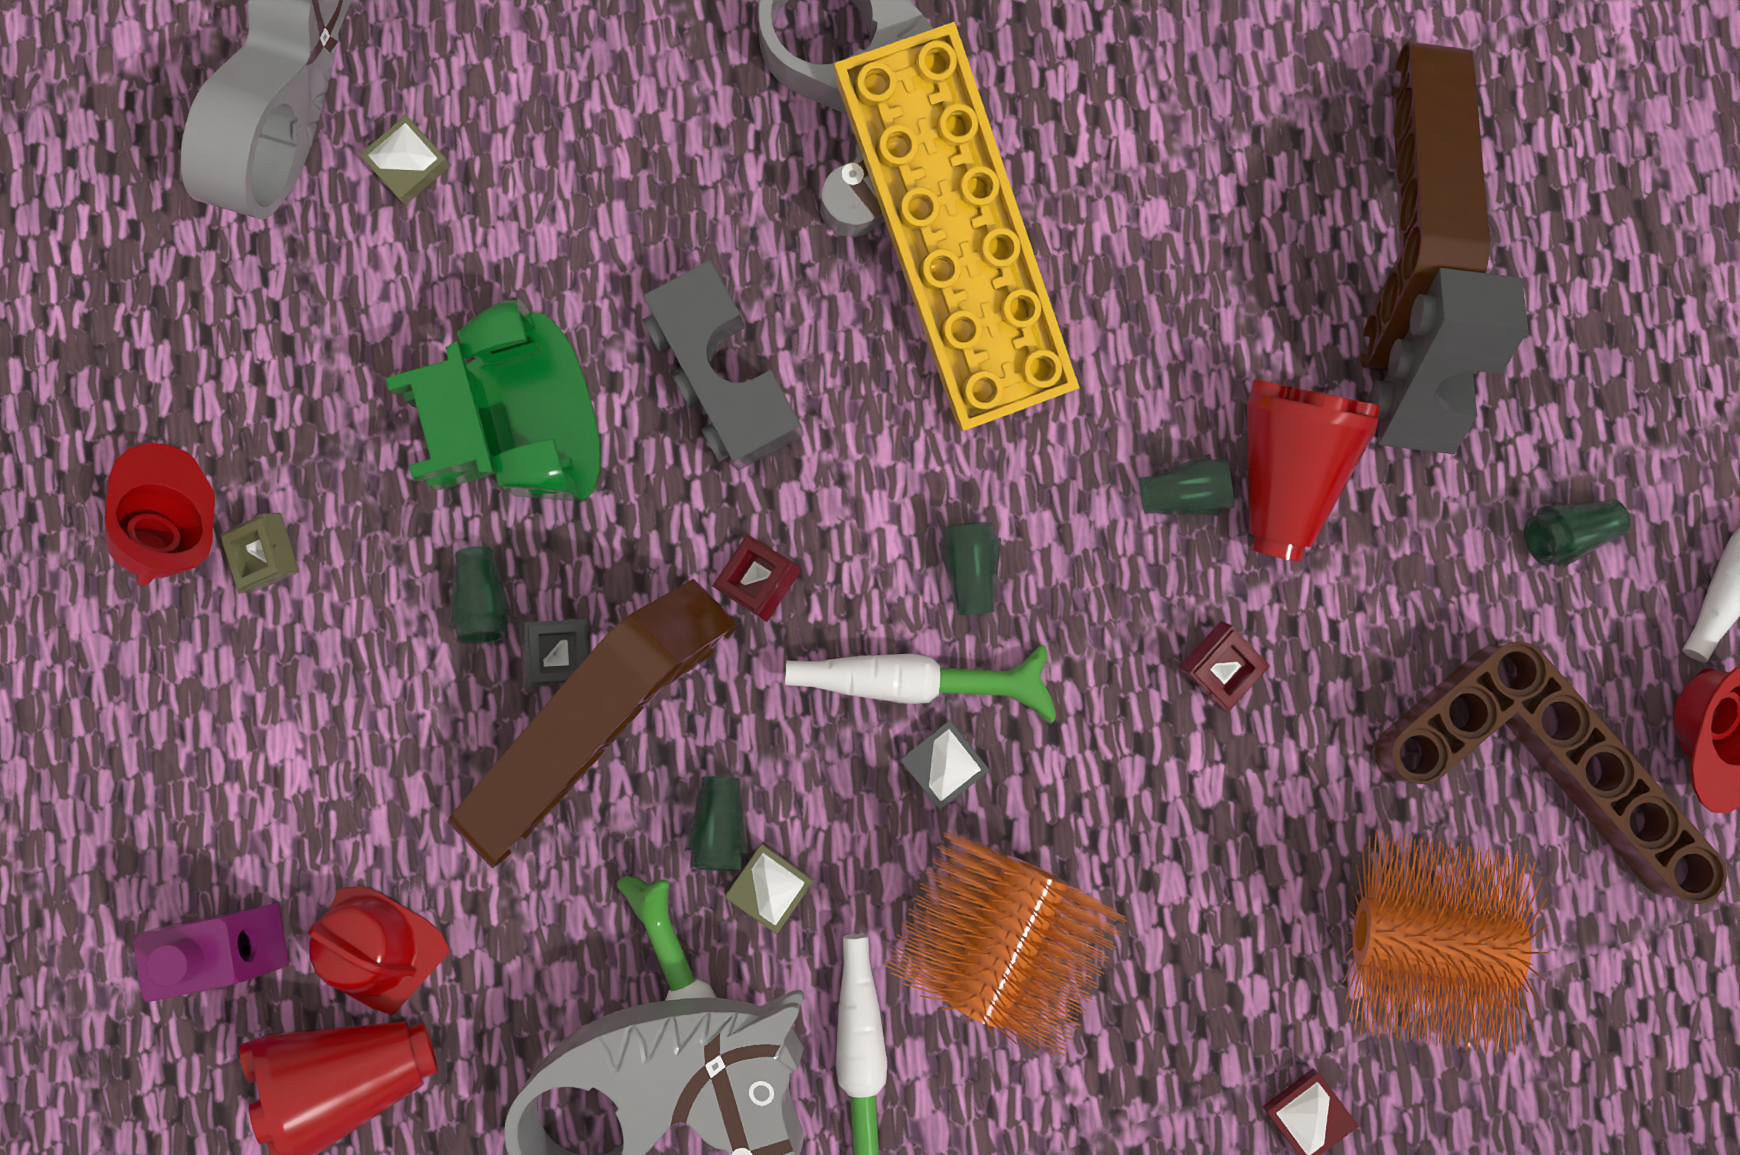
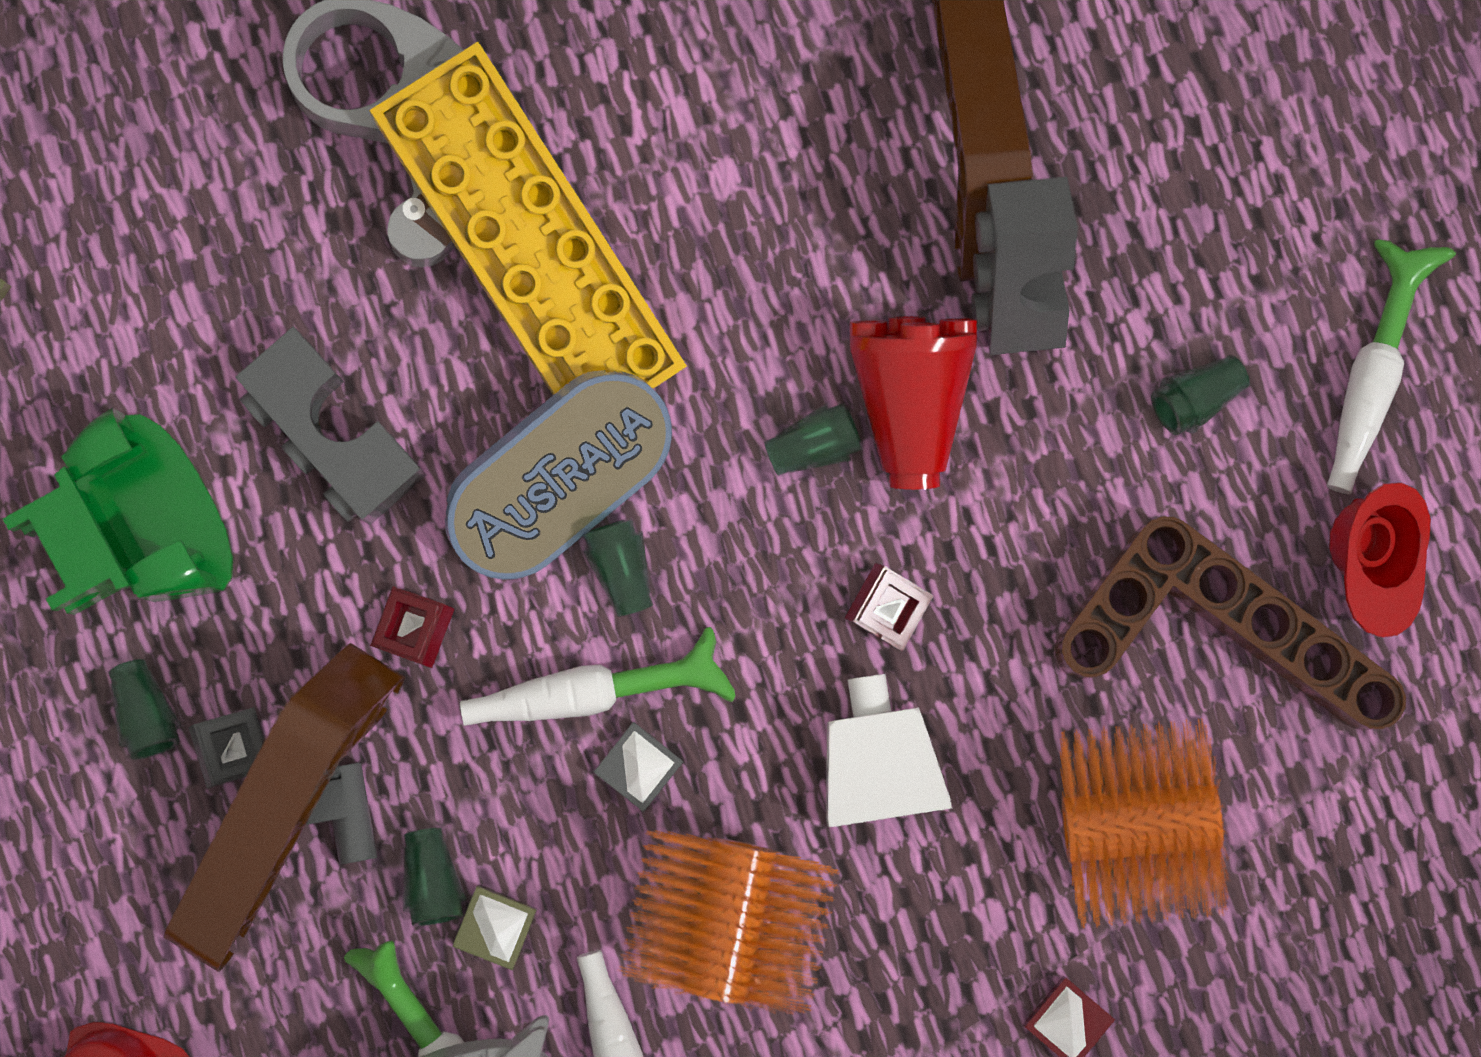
camera: 20 degrees left, 0 degrees up
(654, 741) = (348, 808): none -> dark grey piece
(932, 462) = (557, 474): none -> tile
(1184, 816) = (880, 760): none -> white torso

